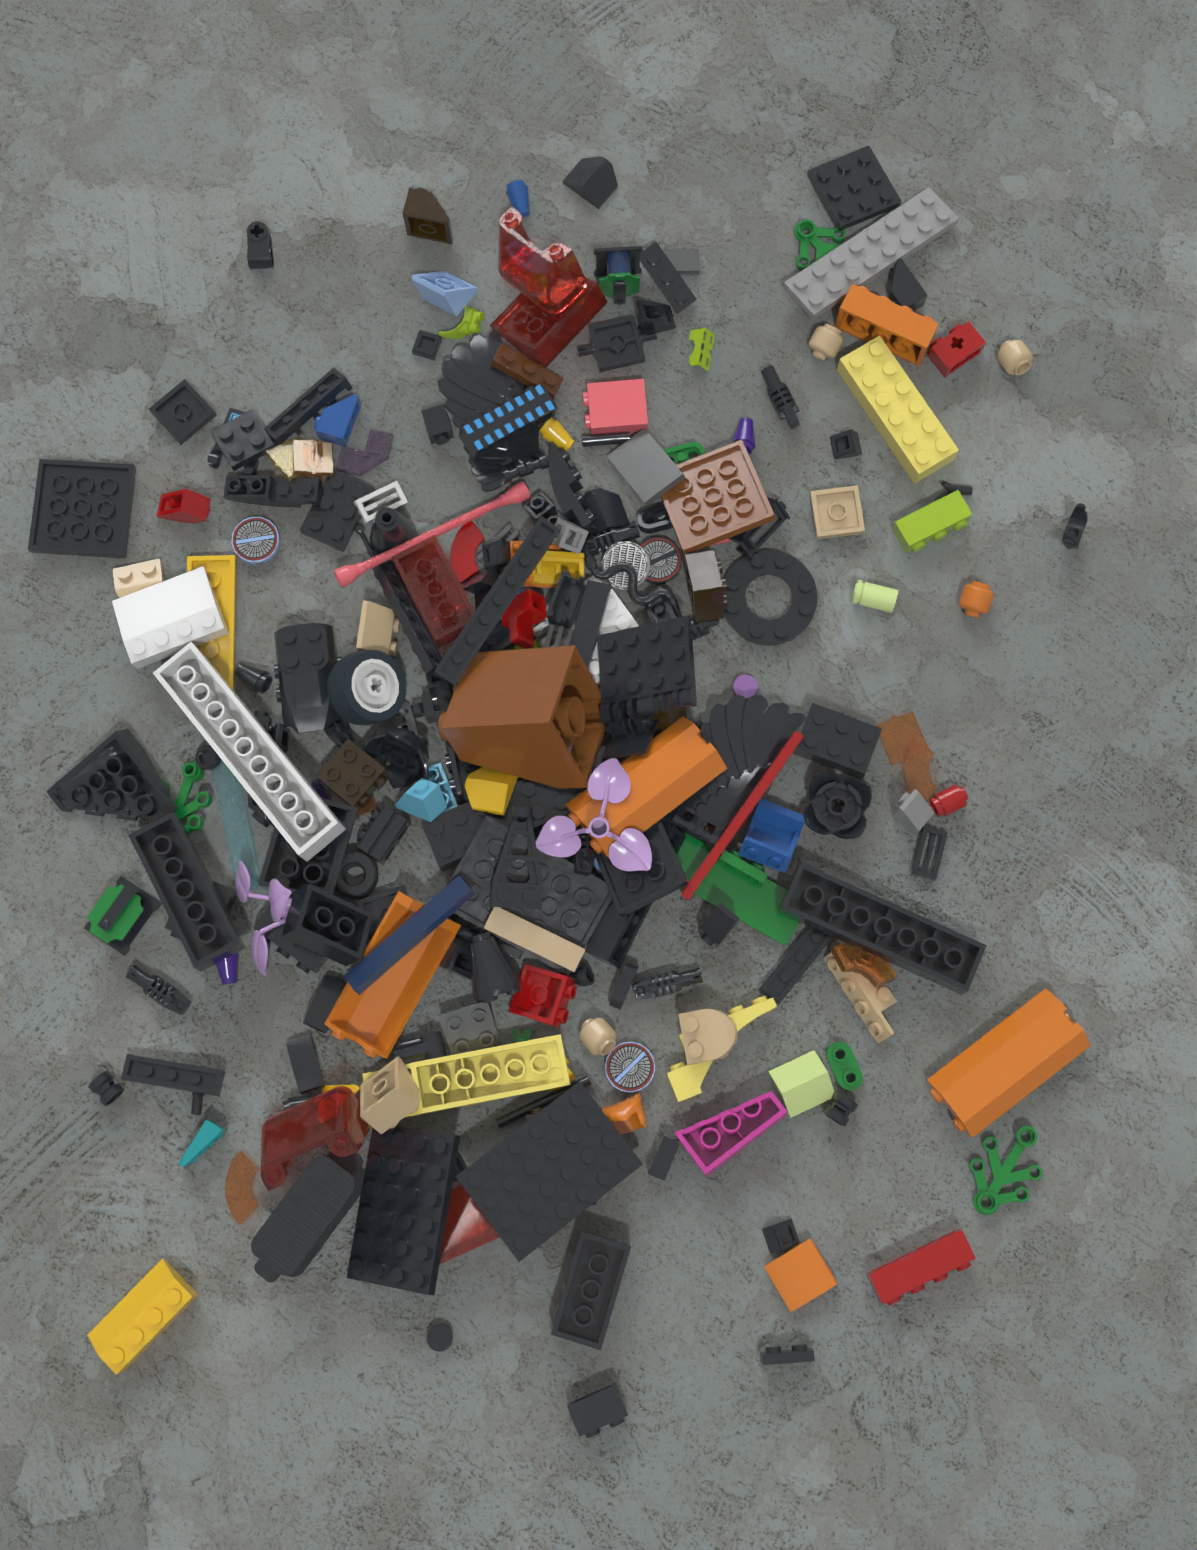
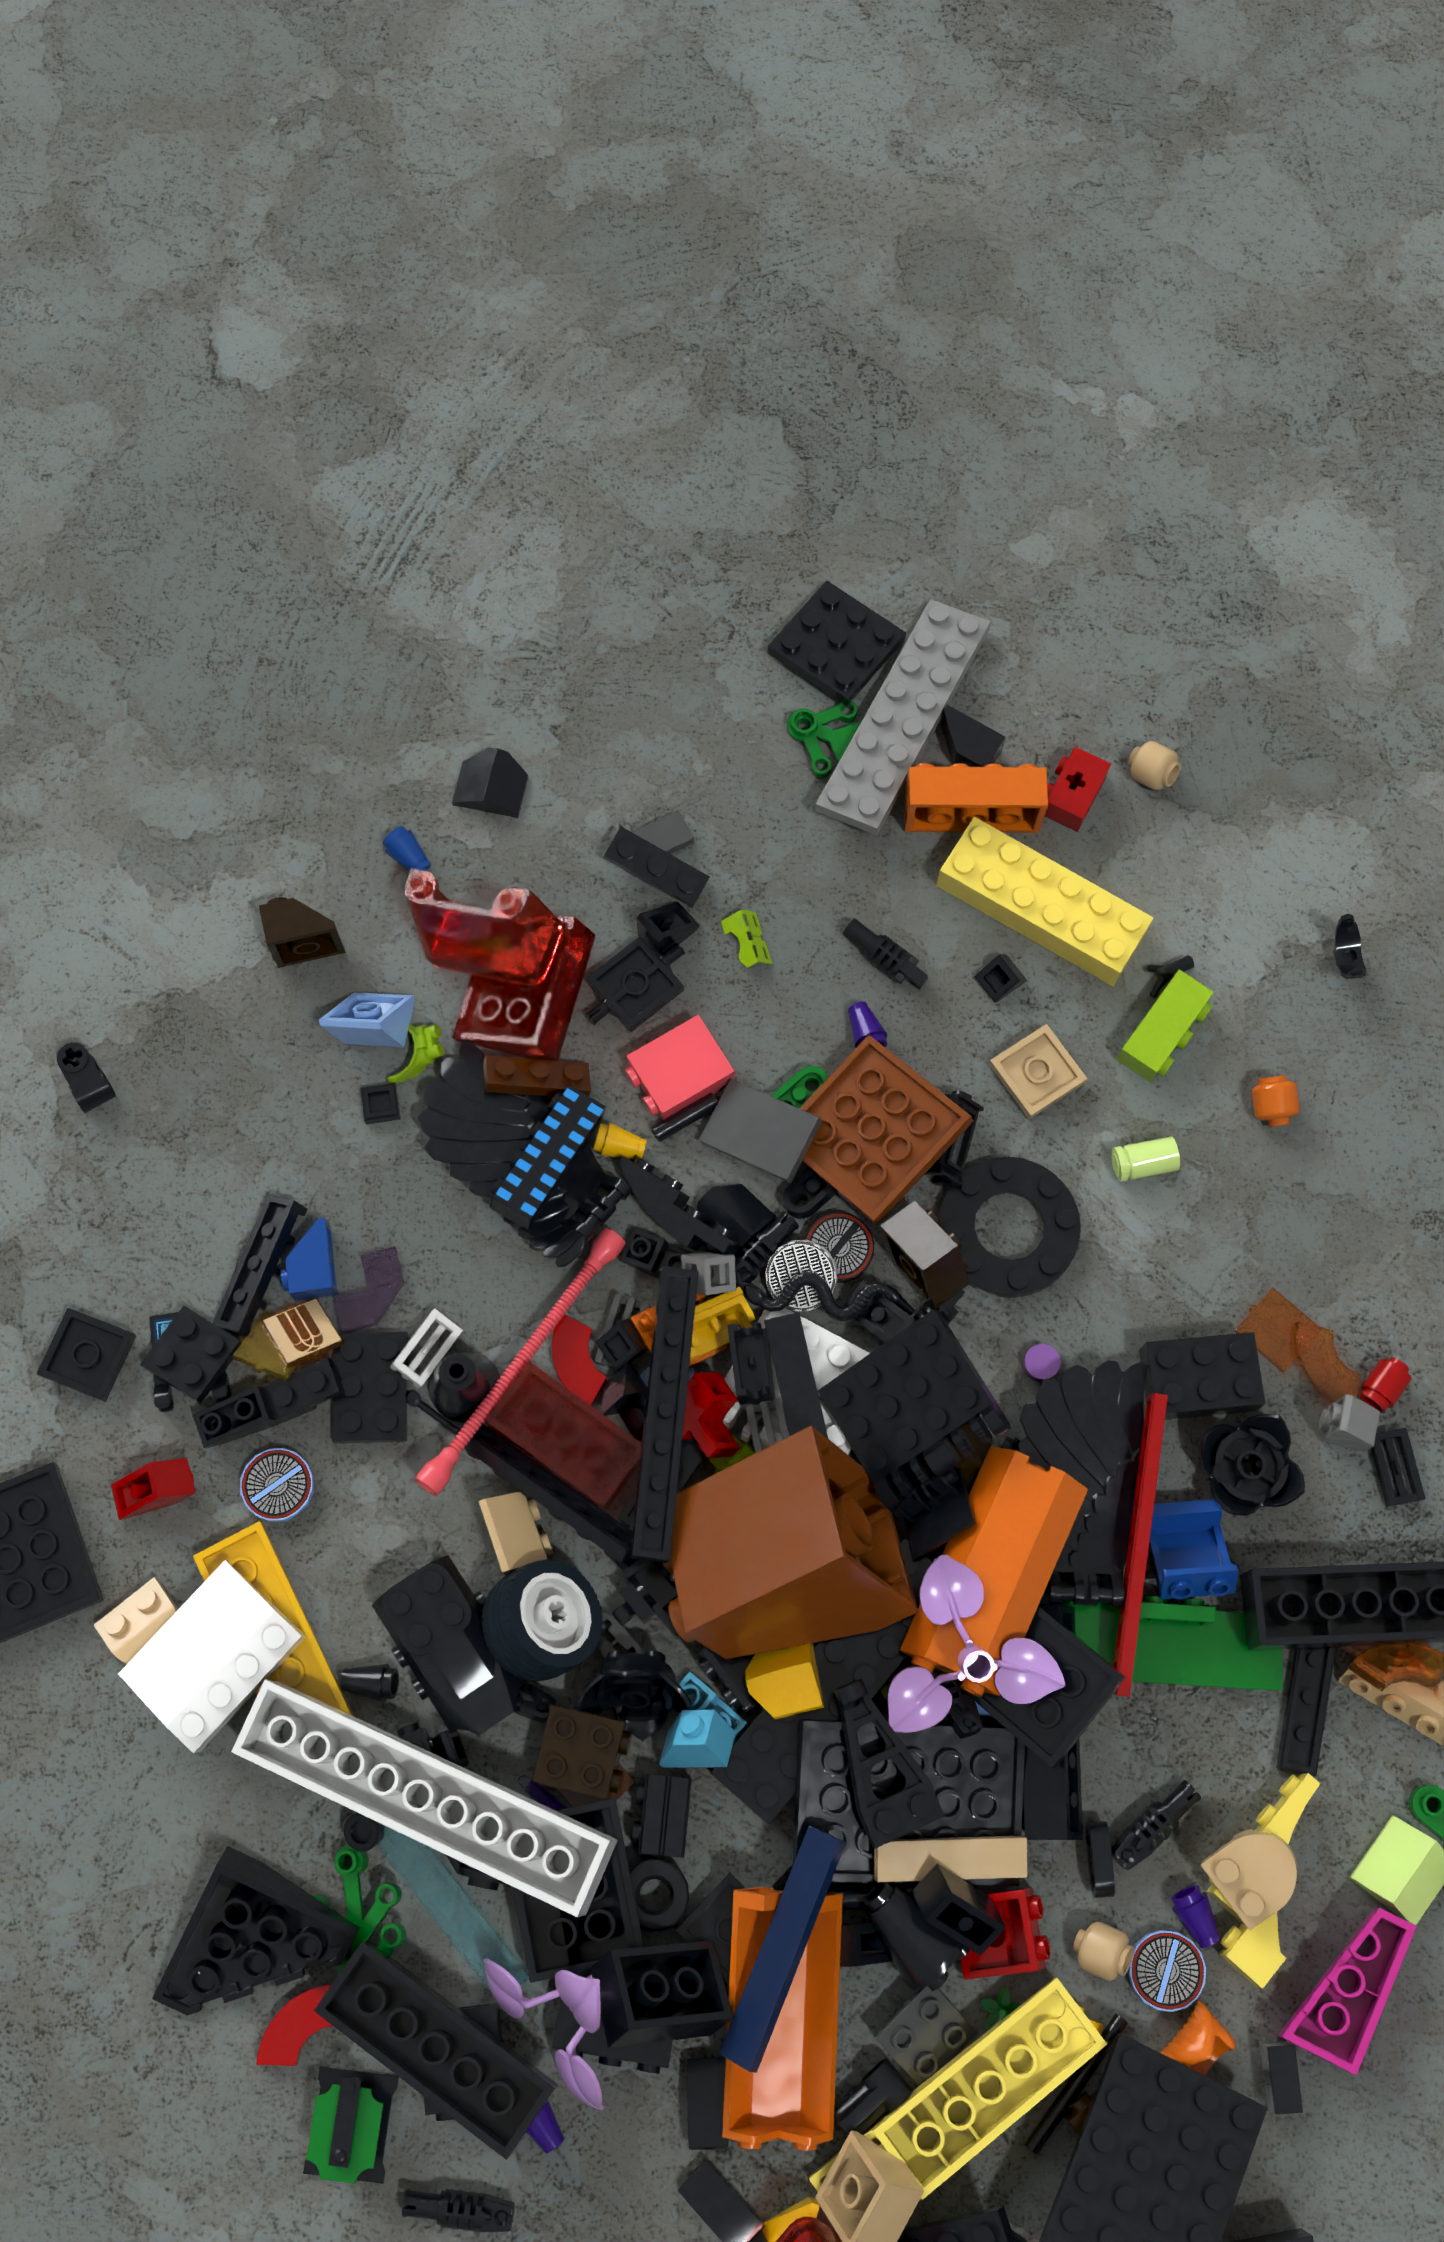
camera: 30 degrees left, 5 degrees down
(112, 848) = (292, 2029): none -> red tile
(437, 424) = (451, 1205): black brick -> none
(522, 966) = (958, 1909): none -> black brick
(584, 976) = (1040, 1874): black hinge -> none
(618, 266) = (593, 881): piece -> none
(664, 1045) = (1196, 1914): none -> dark purple cone
(718, 925) = (1183, 1710): black slope -> none
(825, 342) = (906, 856): tan head -> none

